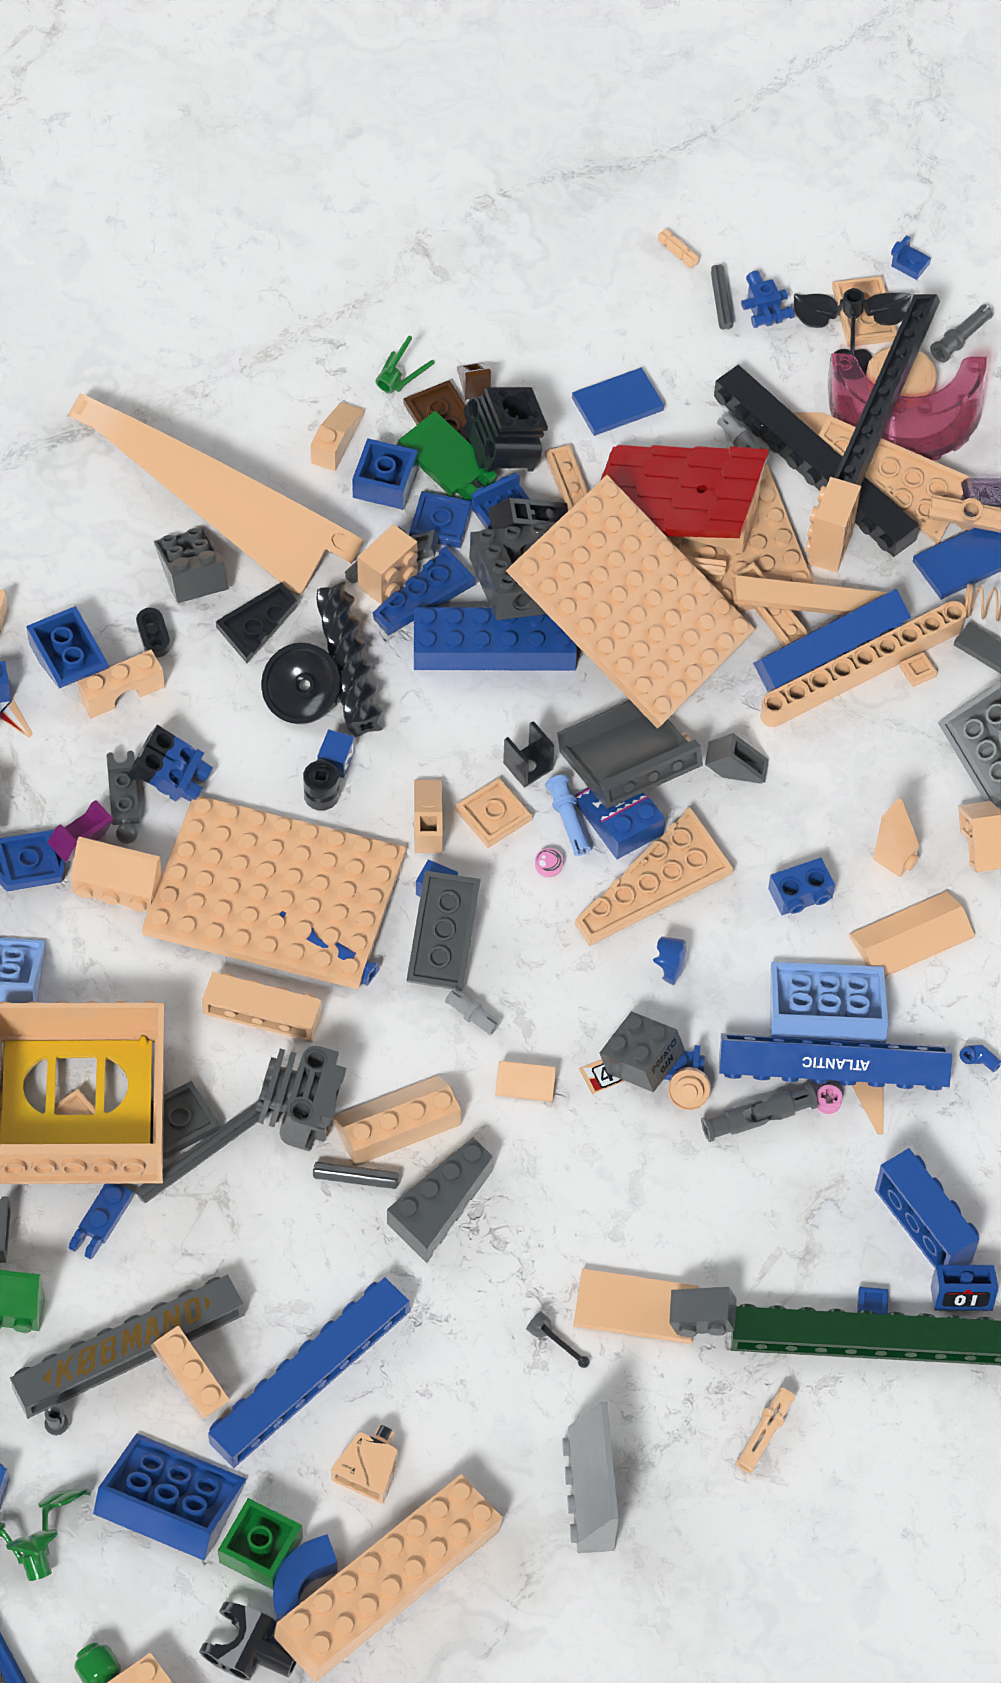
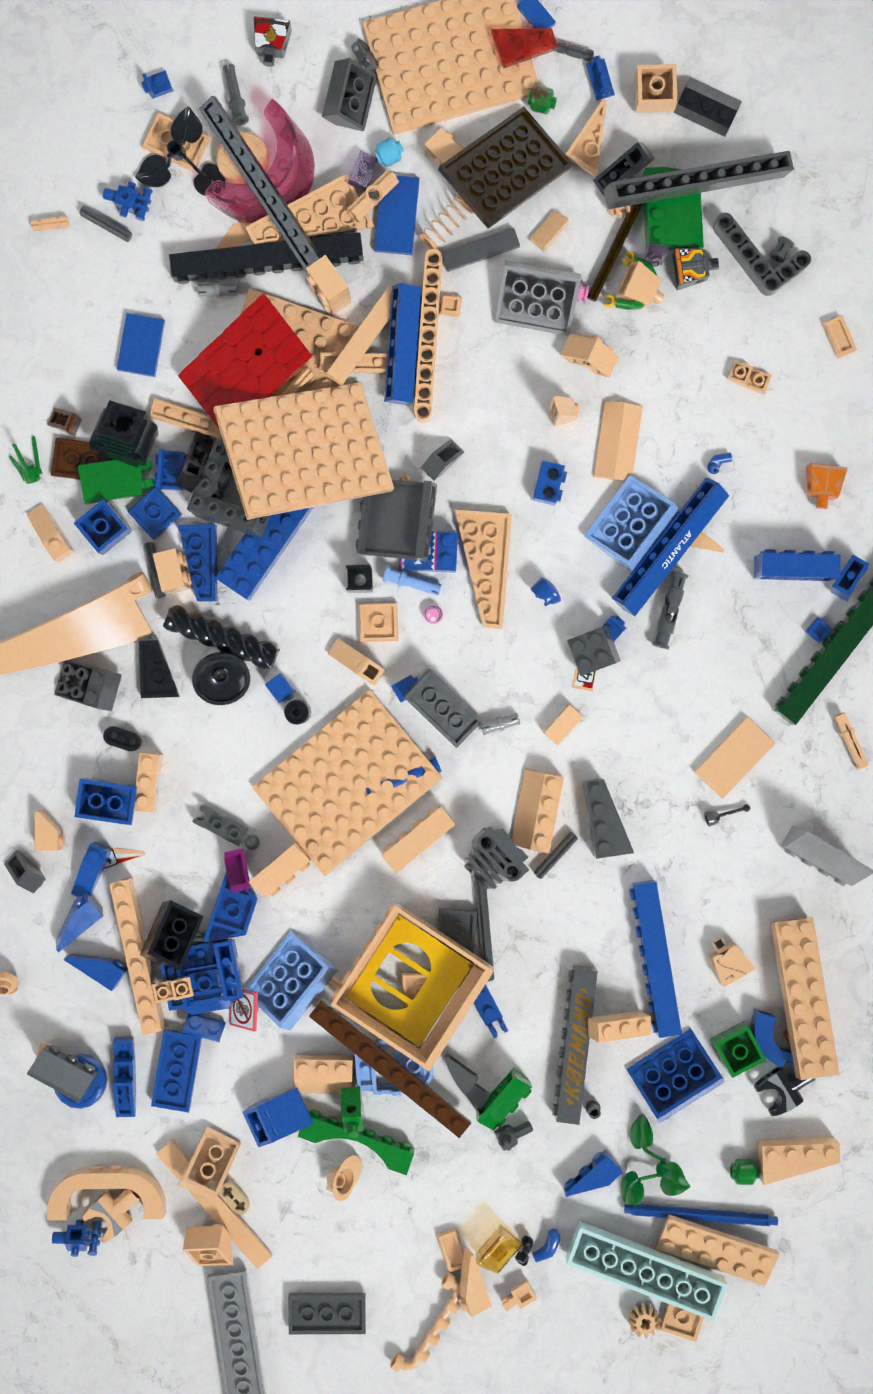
camera: 50 degrees left, 30 degrees up
(169, 765) = (232, 788): blue hips -> none
(426, 544) = (168, 537): dark grey plate -> none
(689, 1088) = (631, 639): light nougat plate -> none
(703, 1311) = (771, 730): dark grey brick -> none
(836, 1097) = (685, 559): bright pink bush -> none

